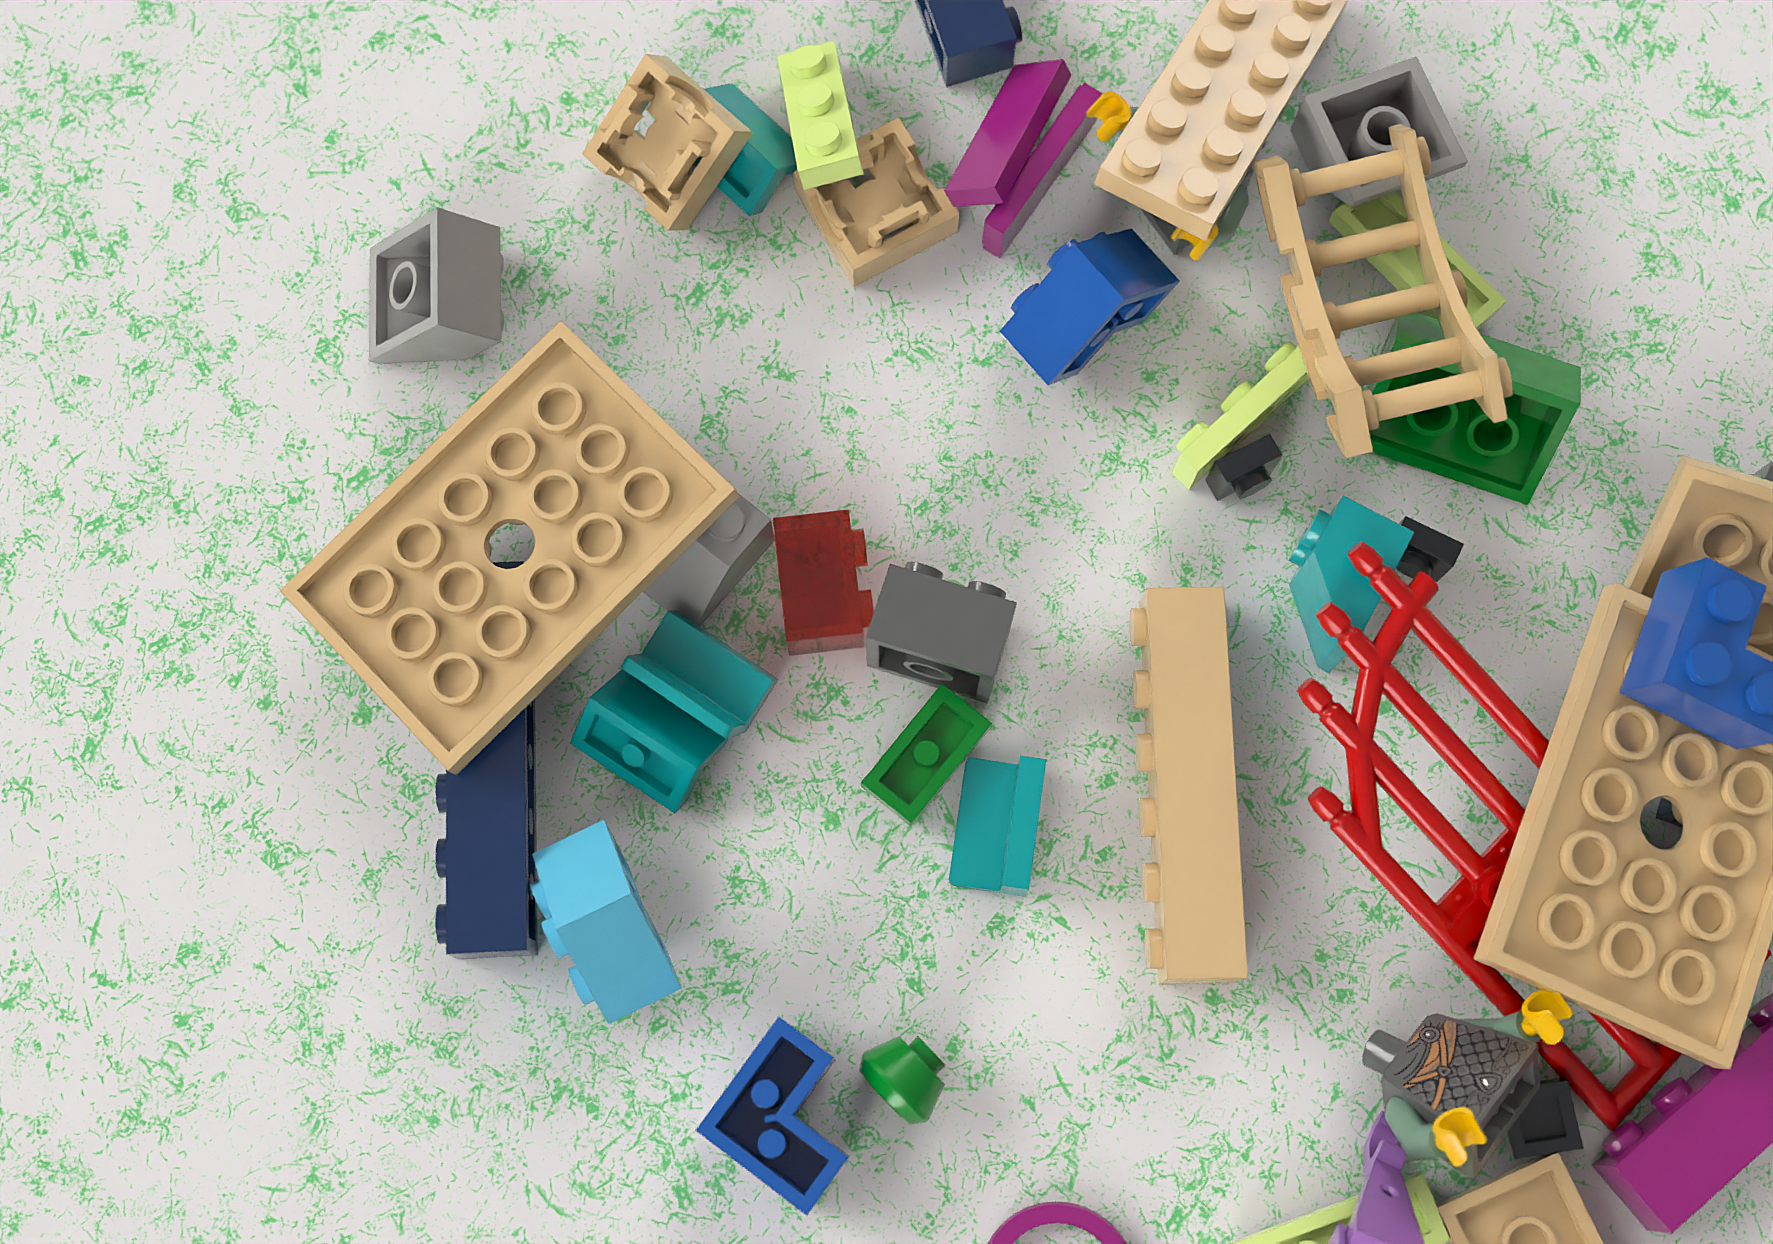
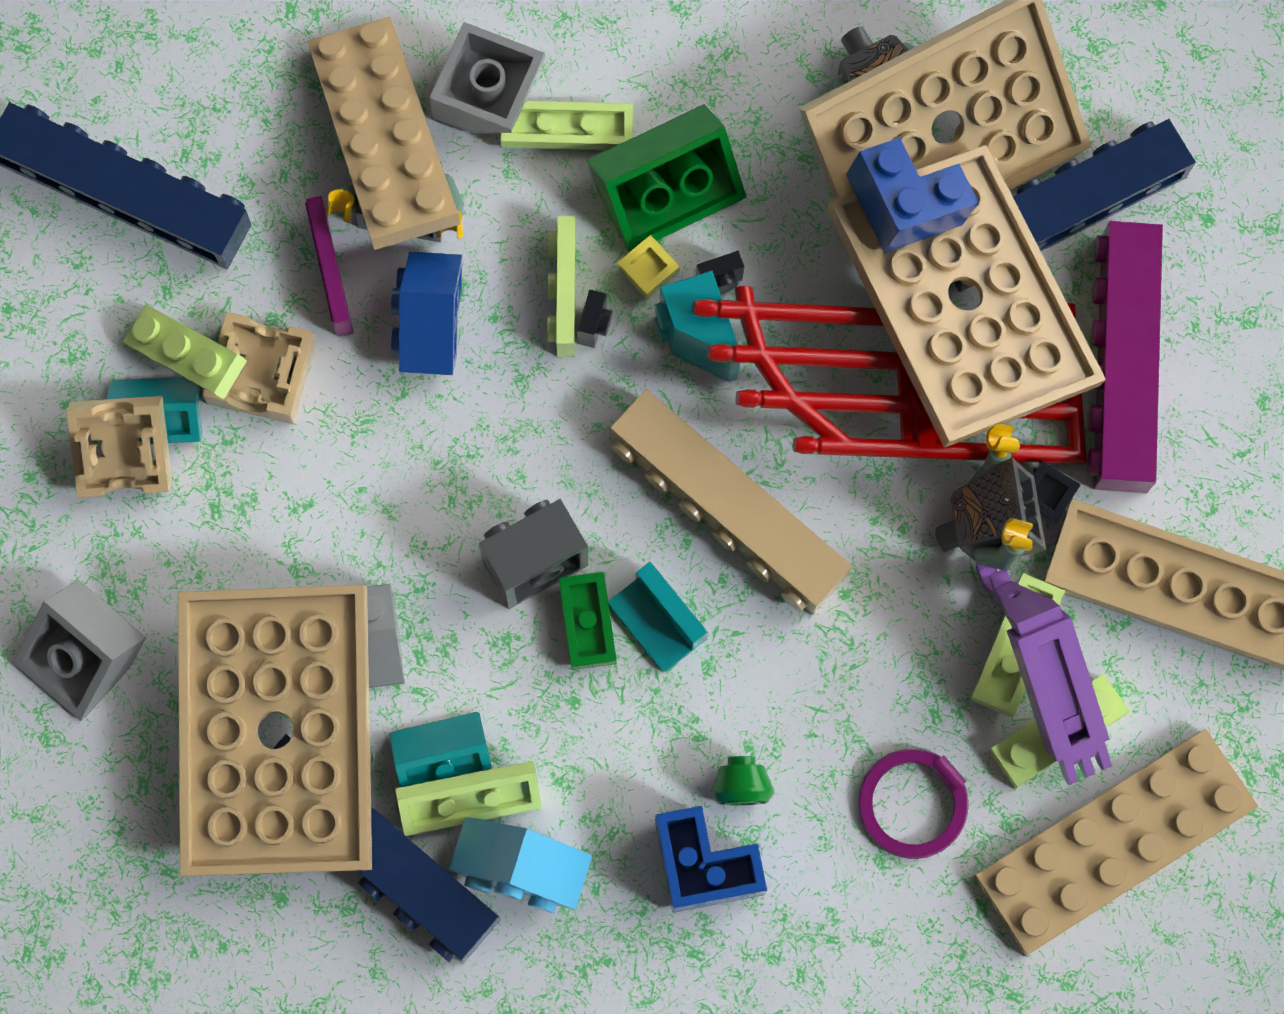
camera: 50 degrees left, 0 degrees up
(629, 803) = (471, 795): none -> yellowish green plate
(702, 675) = (434, 697): teal panel -> none
(820, 582) = (444, 589): clear red brick -> none
(1008, 133) = (293, 264): magenta tile -> none
(1320, 323) = (559, 208): tan fence -> none
(1357, 477) = (648, 267): none -> light yellow plate

